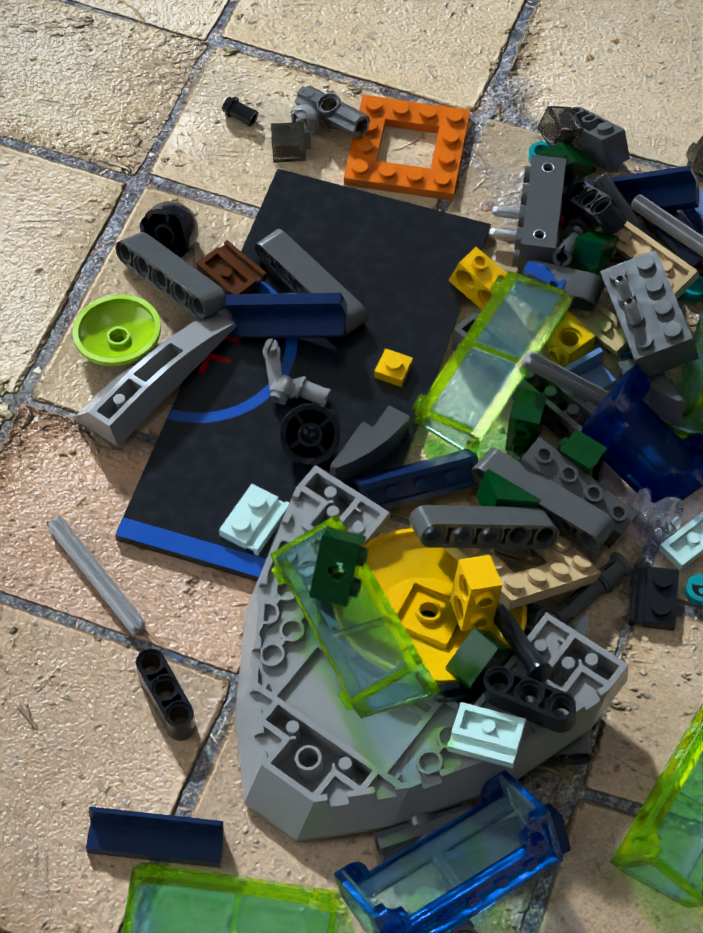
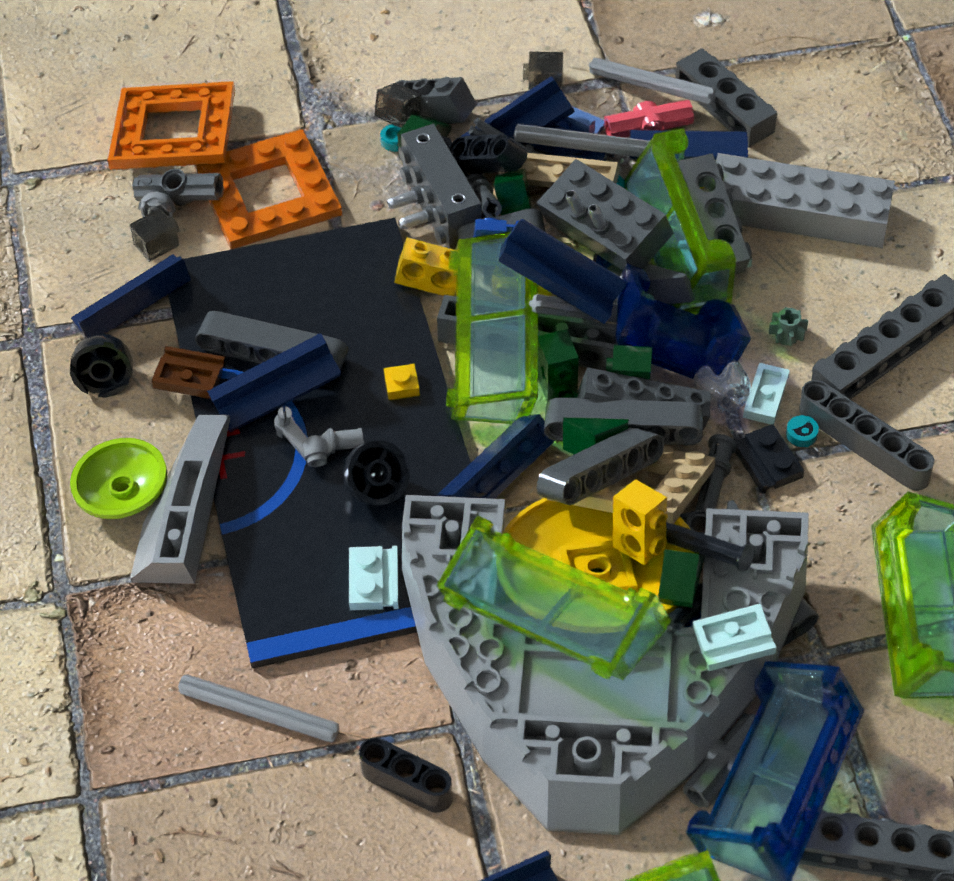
camera: 30 degrees left, 5 degrees down
(171, 275) = (134, 403): dark grey beam -> none
(233, 186) = (132, 297): none -> dark blue panel
(236, 109) = (85, 230): black pin -> none
(319, 63) = (209, 147): none -> orange plate
(327, 581) = (497, 546): dark green brick -> none
(370, 444) = (434, 453): dark grey slope -> none
(538, 712) = (763, 575): black beam -> none
(569, 342) = (561, 270): none -> dark blue panel

